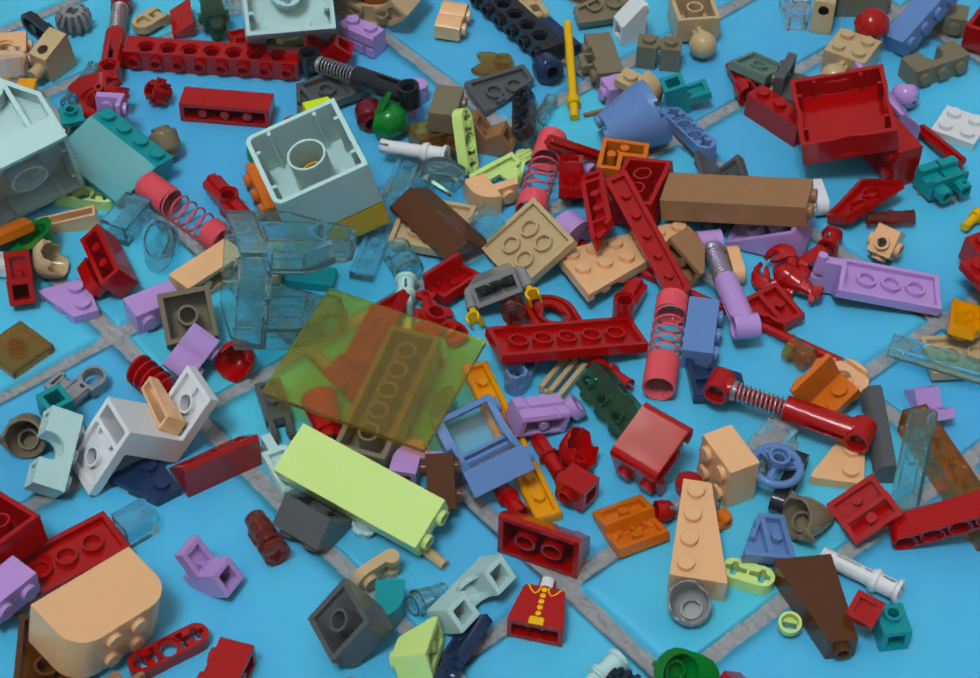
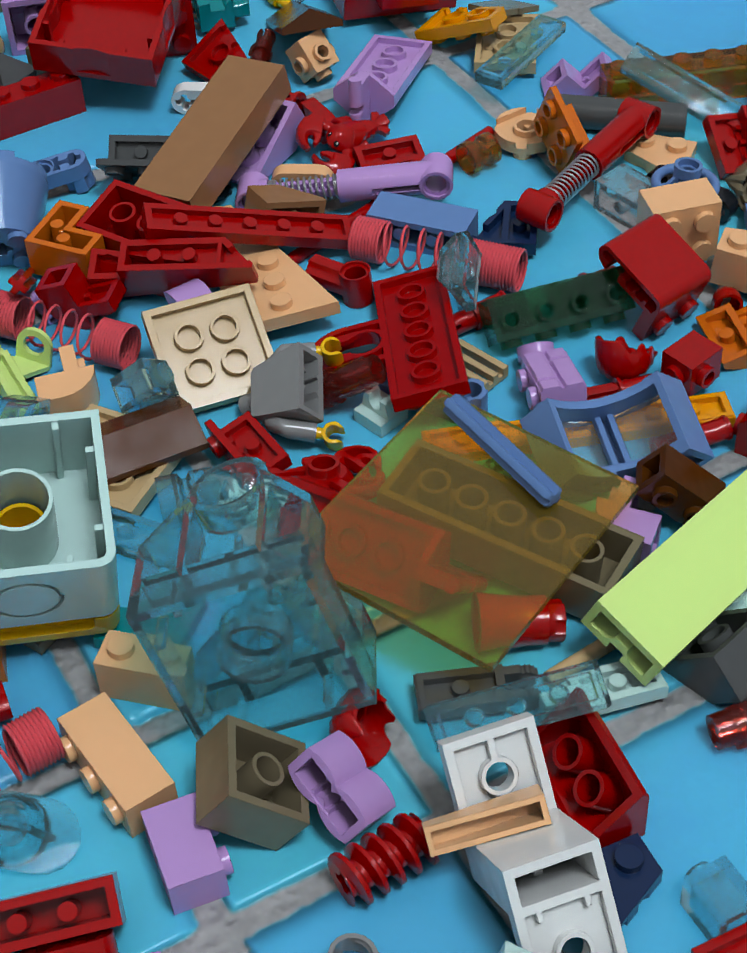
camera: 75 degrees left, 0 degrees up
(244, 413) = (547, 696): none -> clear light blue tile
(430, 373) = (502, 450): none -> medium blue axle
(625, 346) = (460, 269): none -> clear light blue slope
(926, 228) = (299, 18): none -> reddish brown slope

